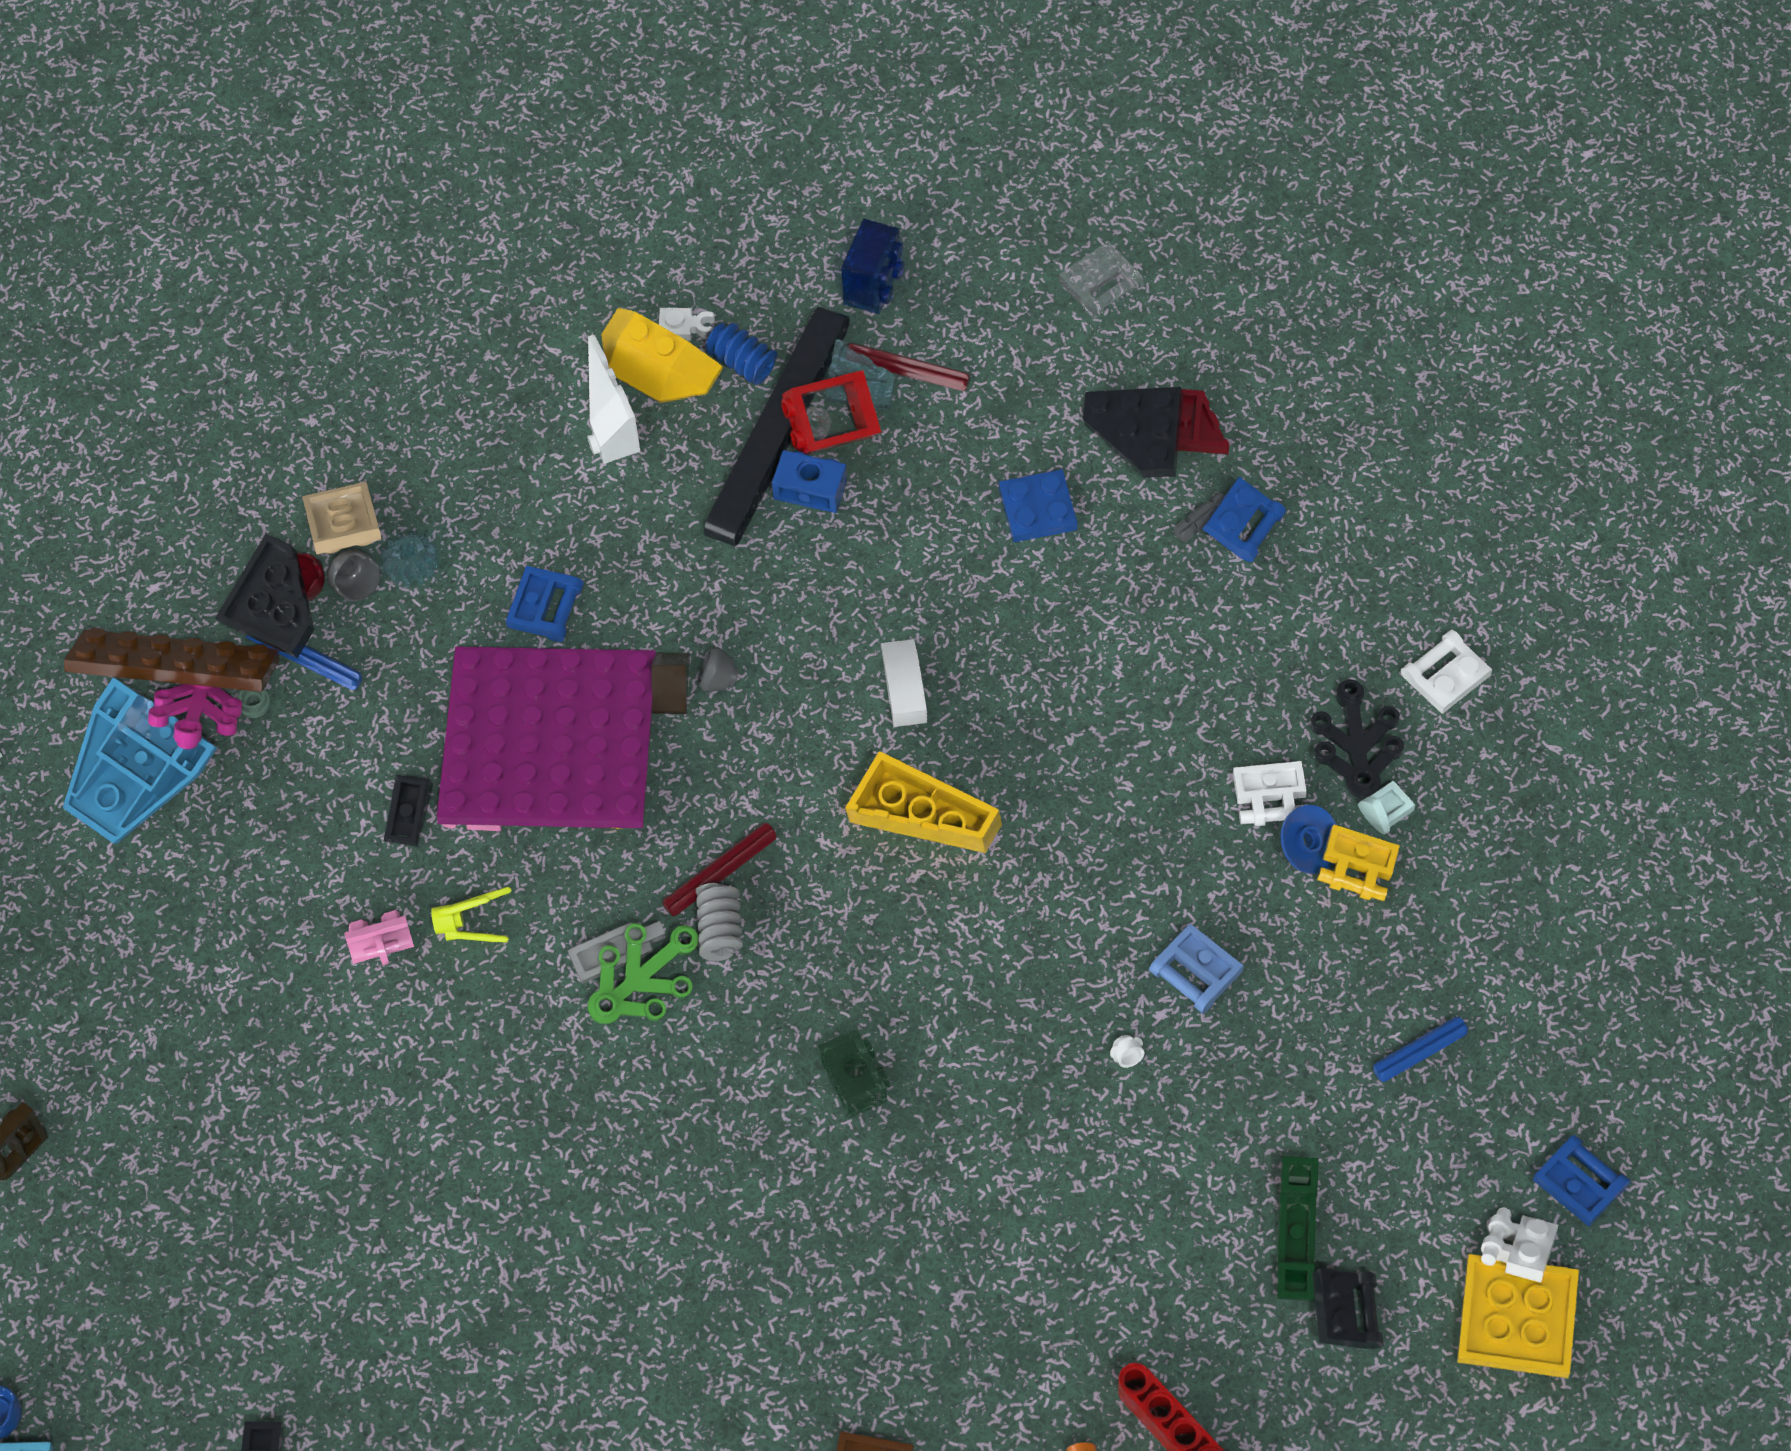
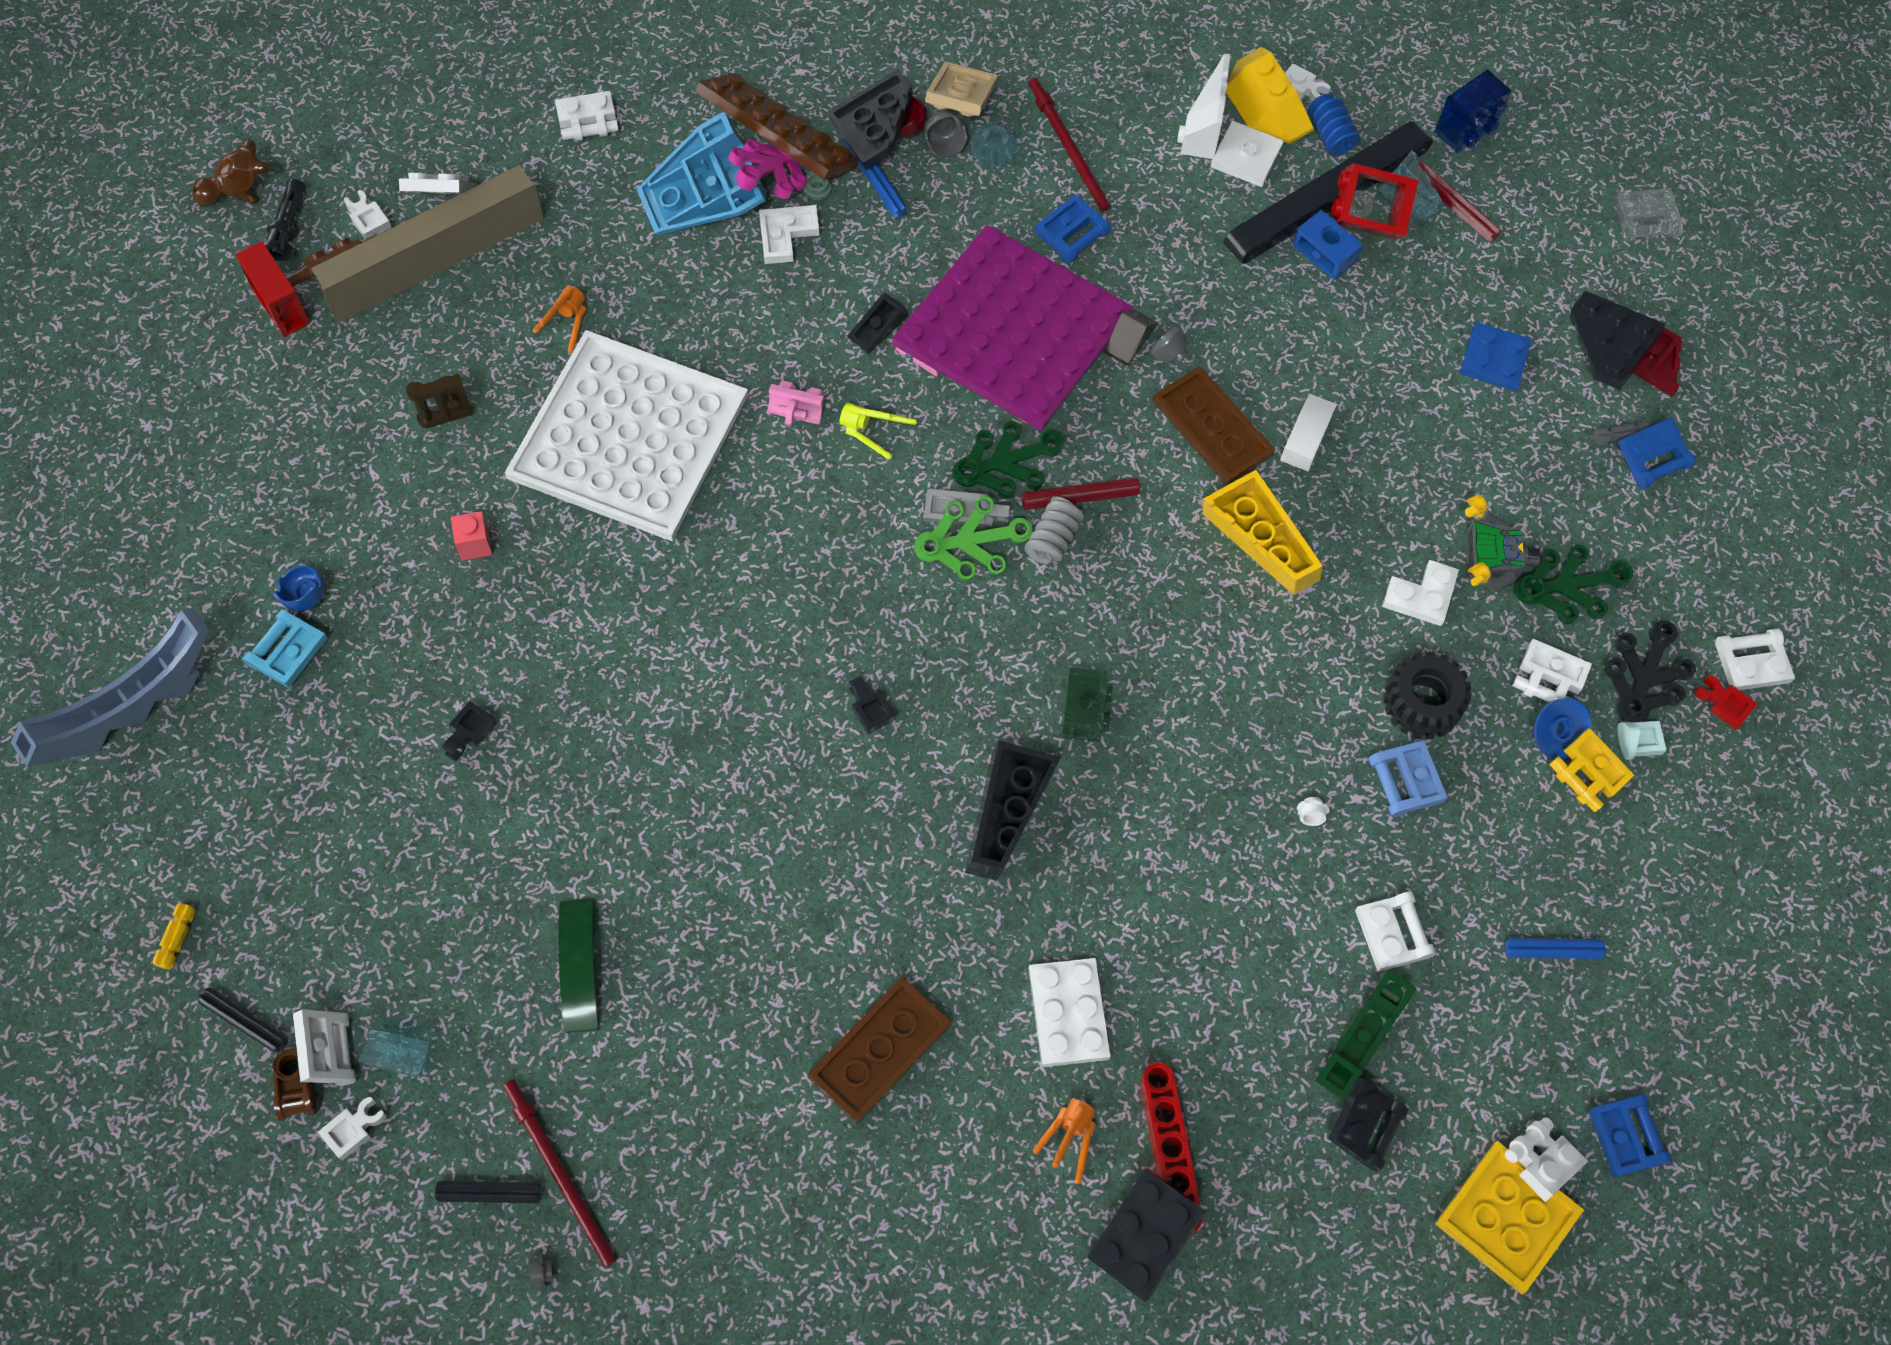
camera: 25 degrees right, 5 degrees up
(73, 969) = (568, 304): none -> orange plant
(136, 1259) = (471, 535): none -> coral brick
(225, 1067) = (627, 435): none -> white plate
(243, 765) = (783, 224): none -> white plate
(435, 486) = (1046, 104): none -> dark red bar
(624, 879) = (1005, 461): none -> dark green plant
(648, 1198) = (870, 708): none -> black plate
(671, 428) = (1247, 153): none -> white plate
(807, 728) = (1213, 425): none -> reddish brown plate
(839, 1212) = (1009, 797): none -> black wedge
(1015, 1371) = (1069, 1012): none -> white plate
(1113, 787) = (1426, 600): none -> white plate
(1148, 701) = (1494, 549): none -> torso
(1168, 903) = (1441, 677): none -> black tyre
(1237, 696) = (1569, 585): none -> dark green plant
(1263, 1129) = (1385, 936): none -> white plate
(1448, 727) = (1729, 704): none -> red plate

